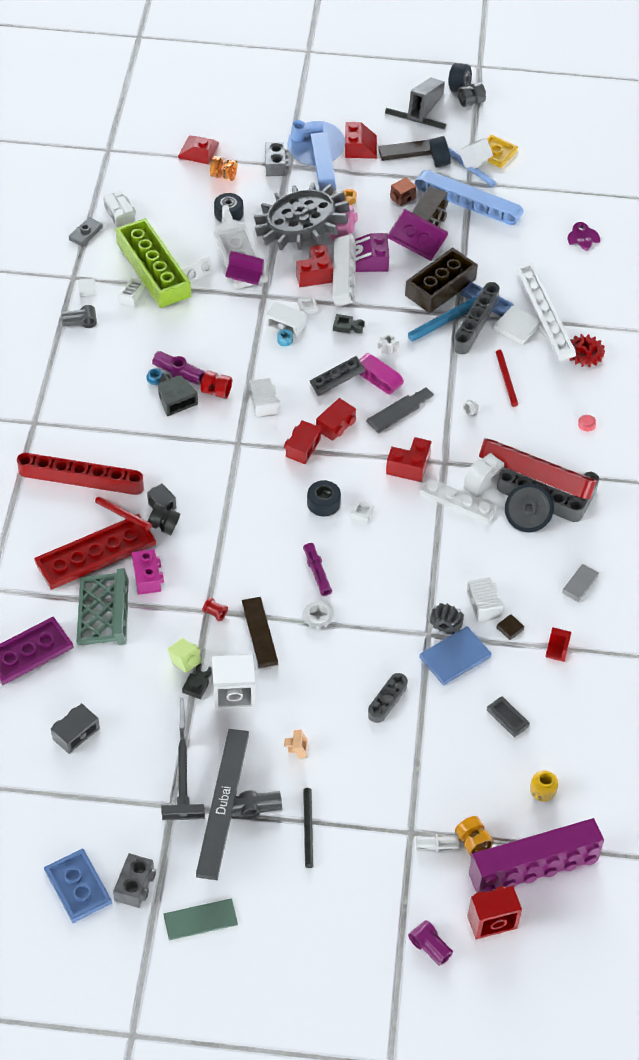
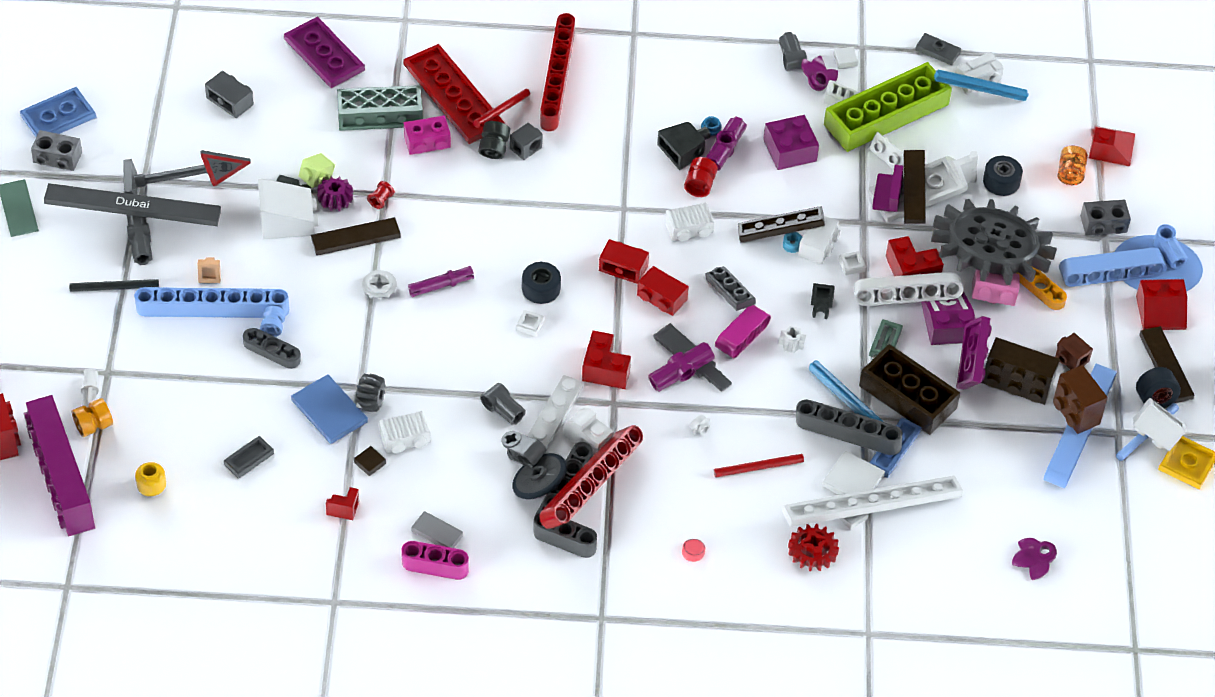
camera: 85 degrees right, 0 degrees up
(106, 303) = (817, 73): none -> magenta plate
(140, 204) = (981, 85): none -> dark azure axle
(182, 325) = (791, 142): none -> magenta brick
(211, 643) = (335, 193): none -> magenta gear
(222, 250) = (914, 187): none -> dark brown tile
(273, 337) = (781, 224): none -> dark brown tile
(337, 750) = (208, 302): none -> light blue beam
(360, 693) = (273, 320): none -> light blue wheel
(381, 293) = (873, 351): none -> sand green tile
(417, 411) = (681, 366): none -> magenta piece
(448, 533) = (499, 399): none -> dark grey piece
(465, 181) = (1080, 399): none -> reddish brown brick
(505, 514) = (523, 448): none -> dark grey piece
(613, 582) = (446, 557): none -> dark pink beam

